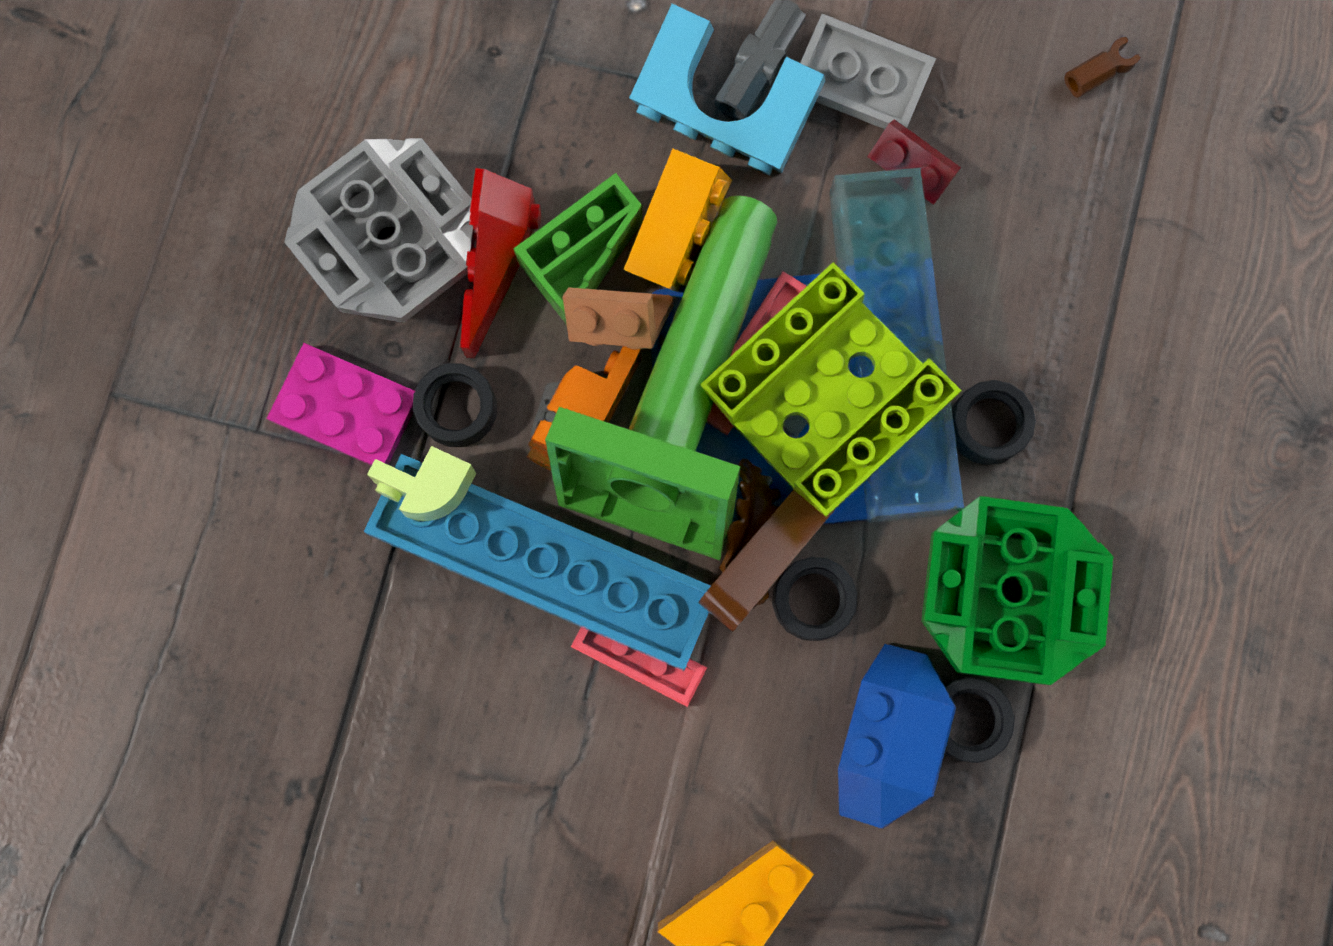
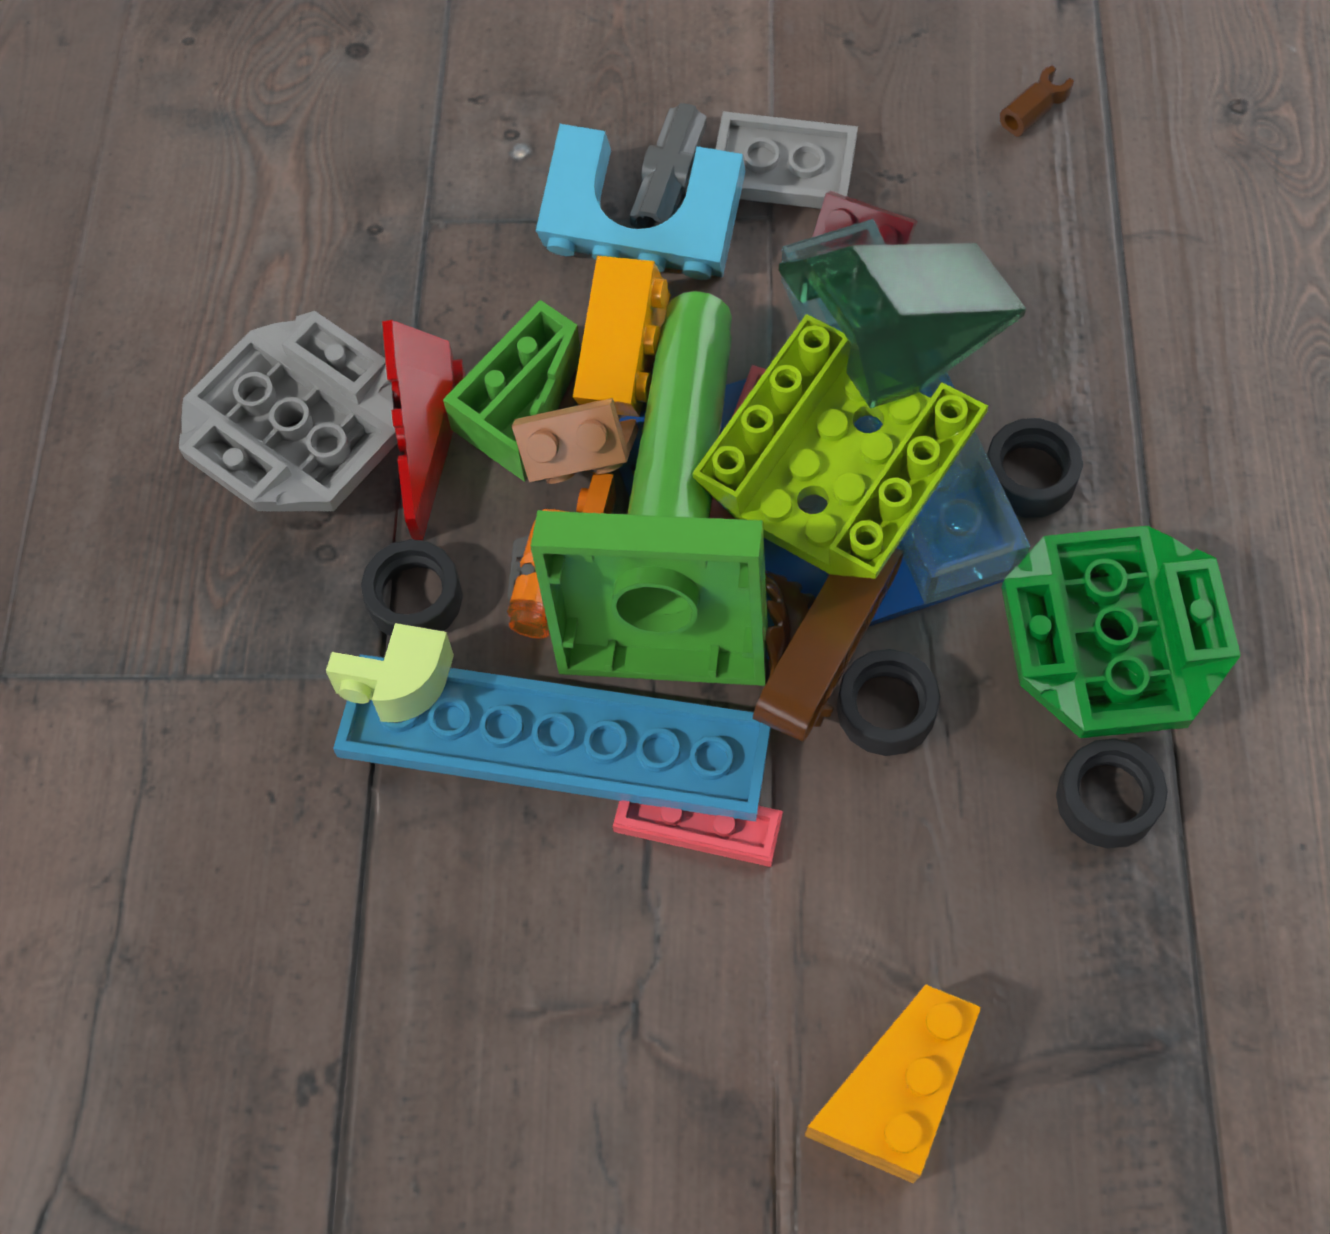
camera: 10 degrees left, 15 degrees down
(343, 406) = (278, 623): dark pink plate -> none
(894, 738) = (1030, 837): blue wedge -> none
(921, 268) = (906, 309): none -> clear green wedge

